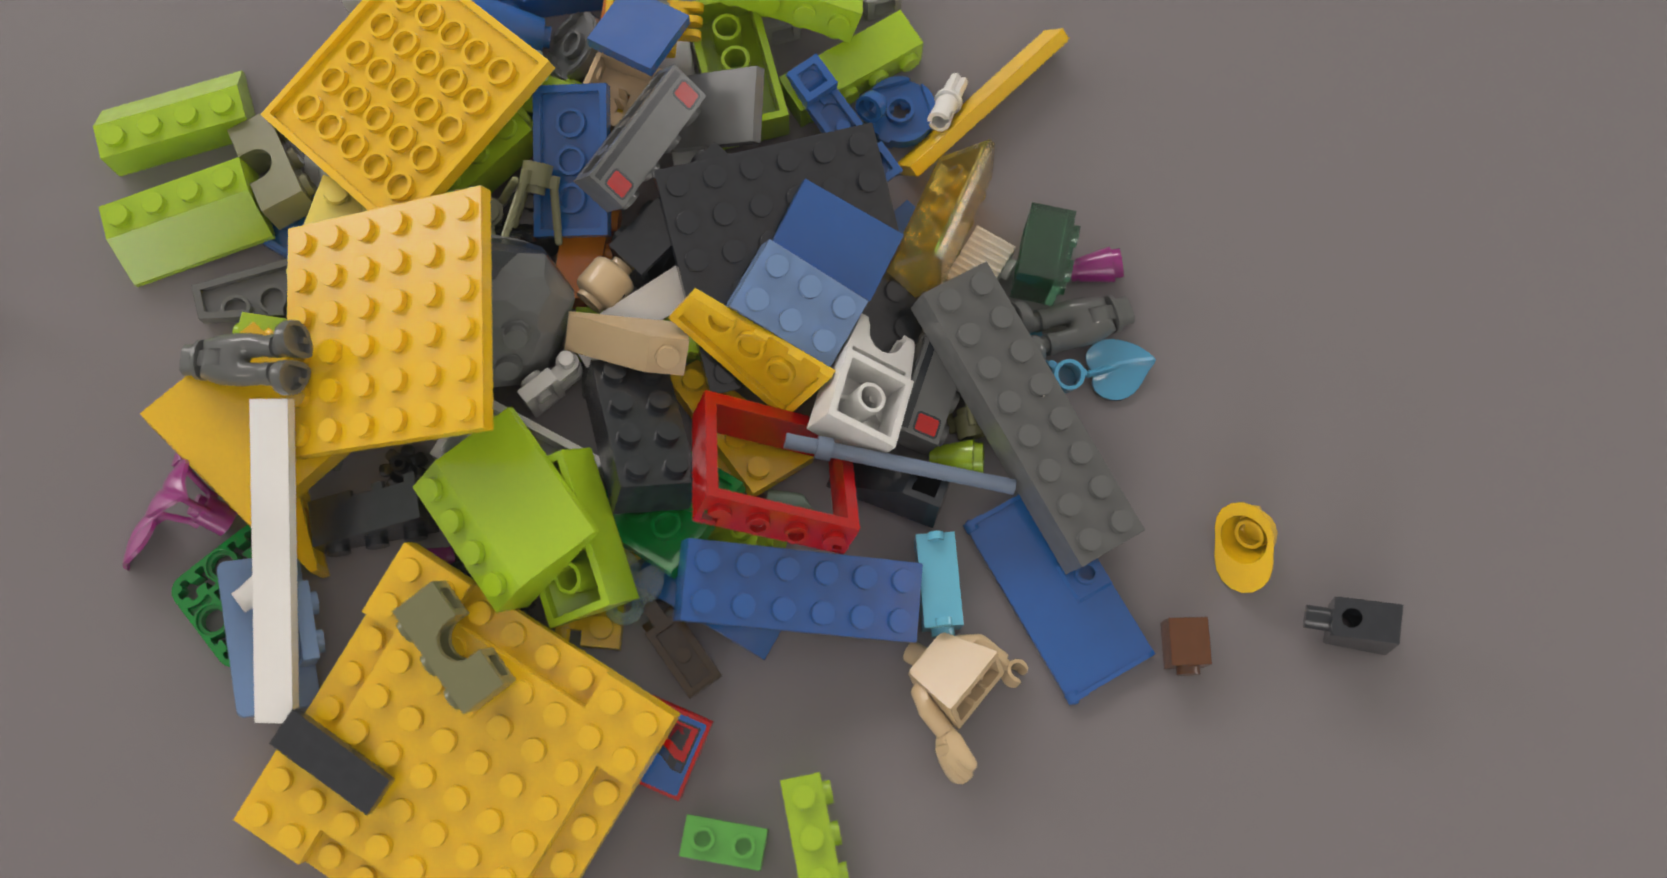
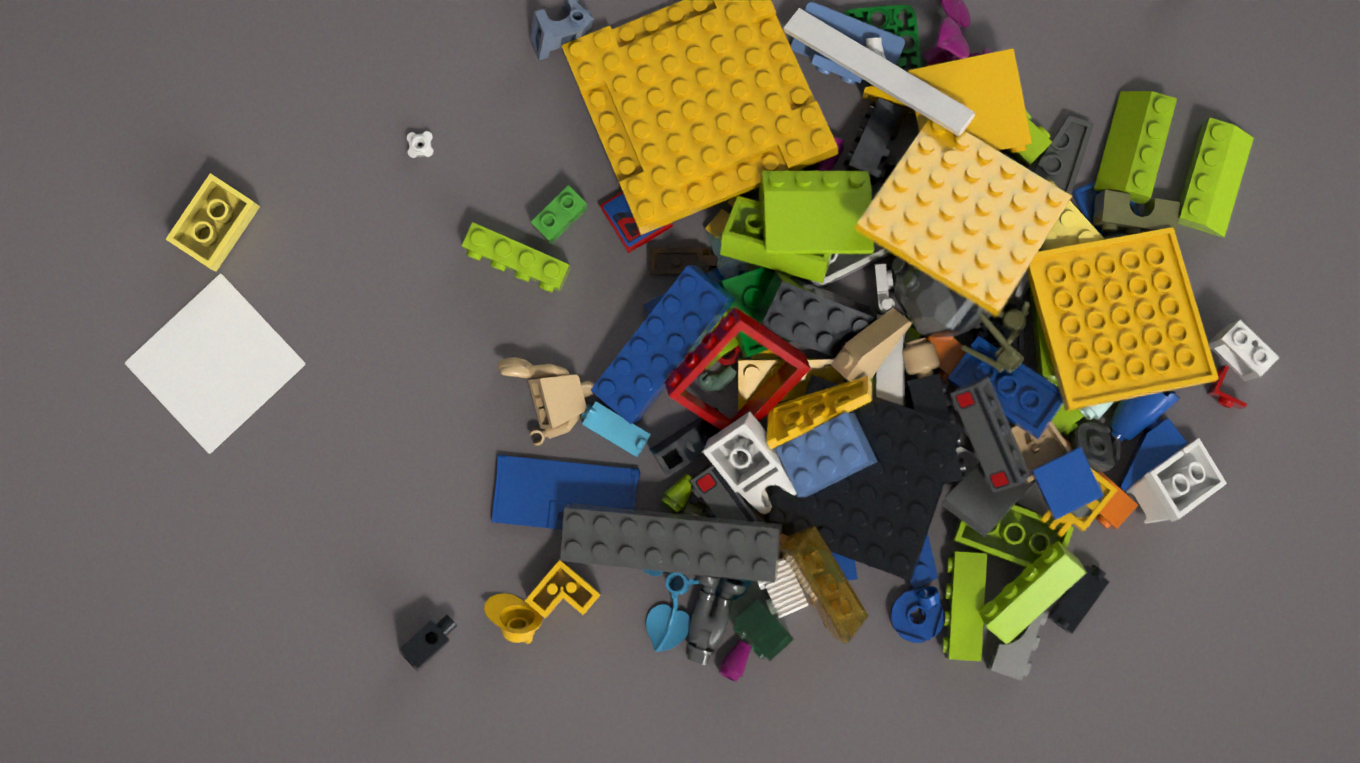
camera: 130 degrees right, 10 degrees up
(229, 356) = (1011, 115): dark grey piece -> none
(332, 761) = (746, 36): black tile -> none
(428, 623) = (736, 131): olive arch -> none
(825, 449) = (730, 413): sand blue bar -> none
(828, 107) = (937, 570): blue slope -> none
(838, 239) = (850, 507): blue tile -> none
(947, 102) = (901, 648): white axle -> none
(984, 101) = (888, 671): yellow tile -> none
(1165, 511) = (561, 584): none -> yellow brick
(1186, 644) = (483, 541): reddish brown brick -> none

